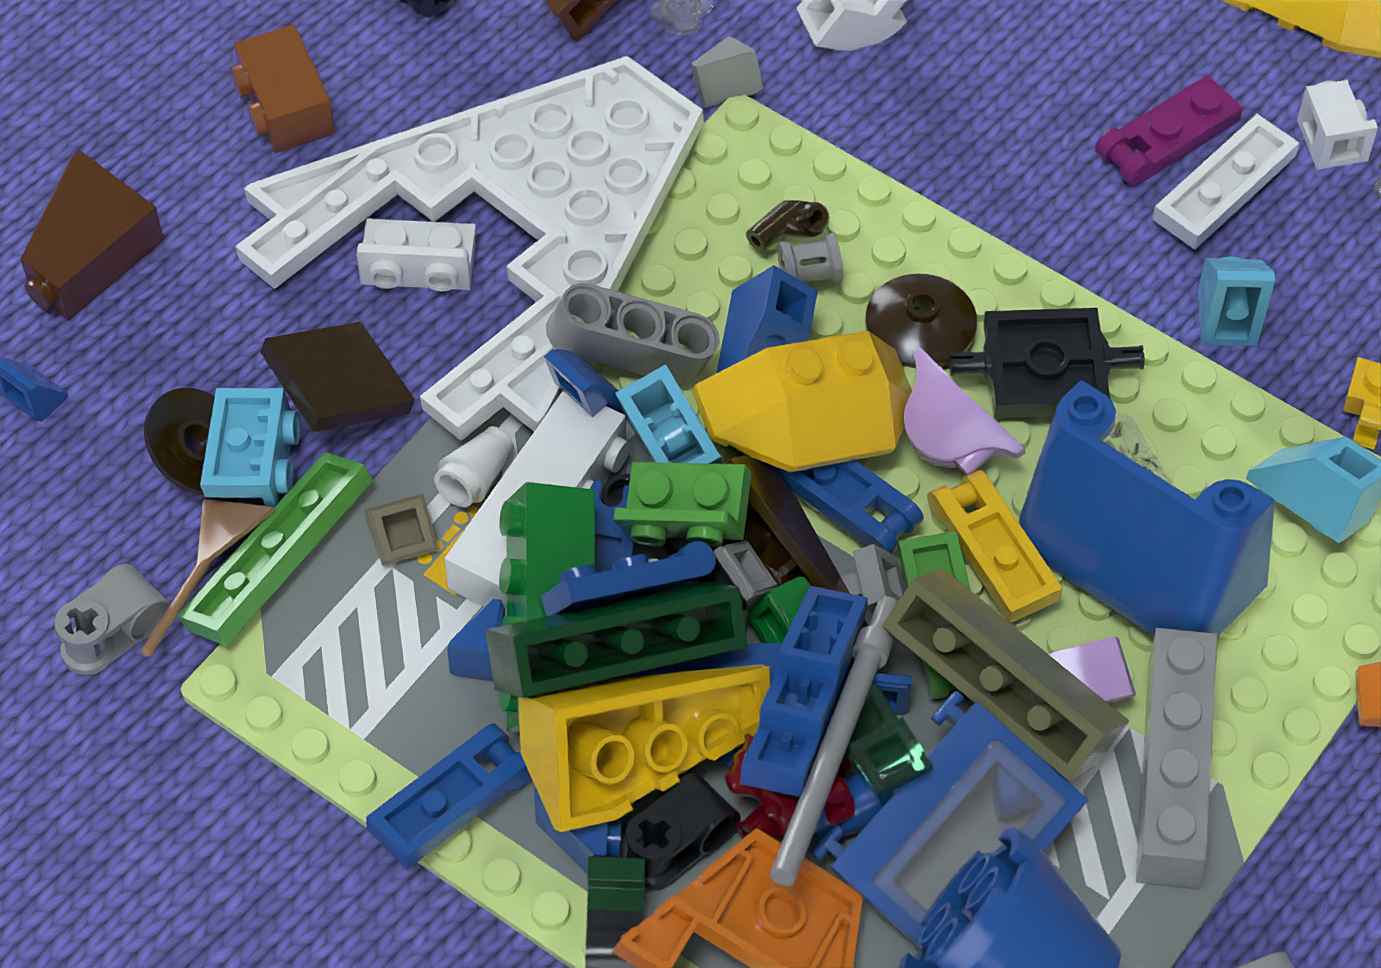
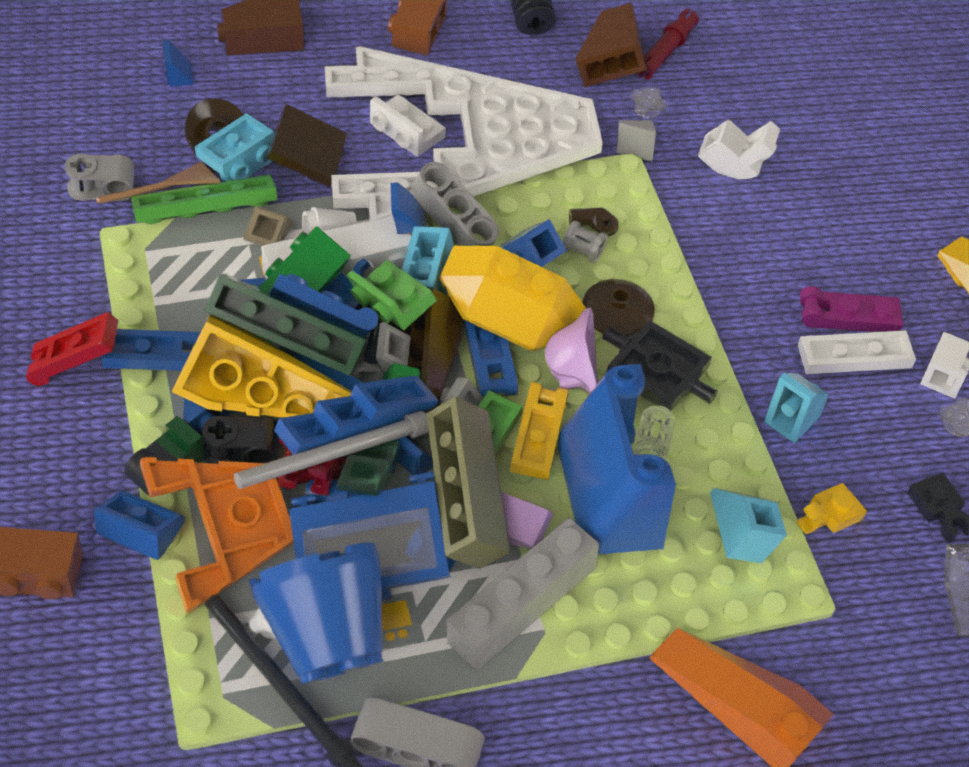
camera: 35 degrees right, 5 degrees down
(350, 874) = (72, 348): none -> red plate

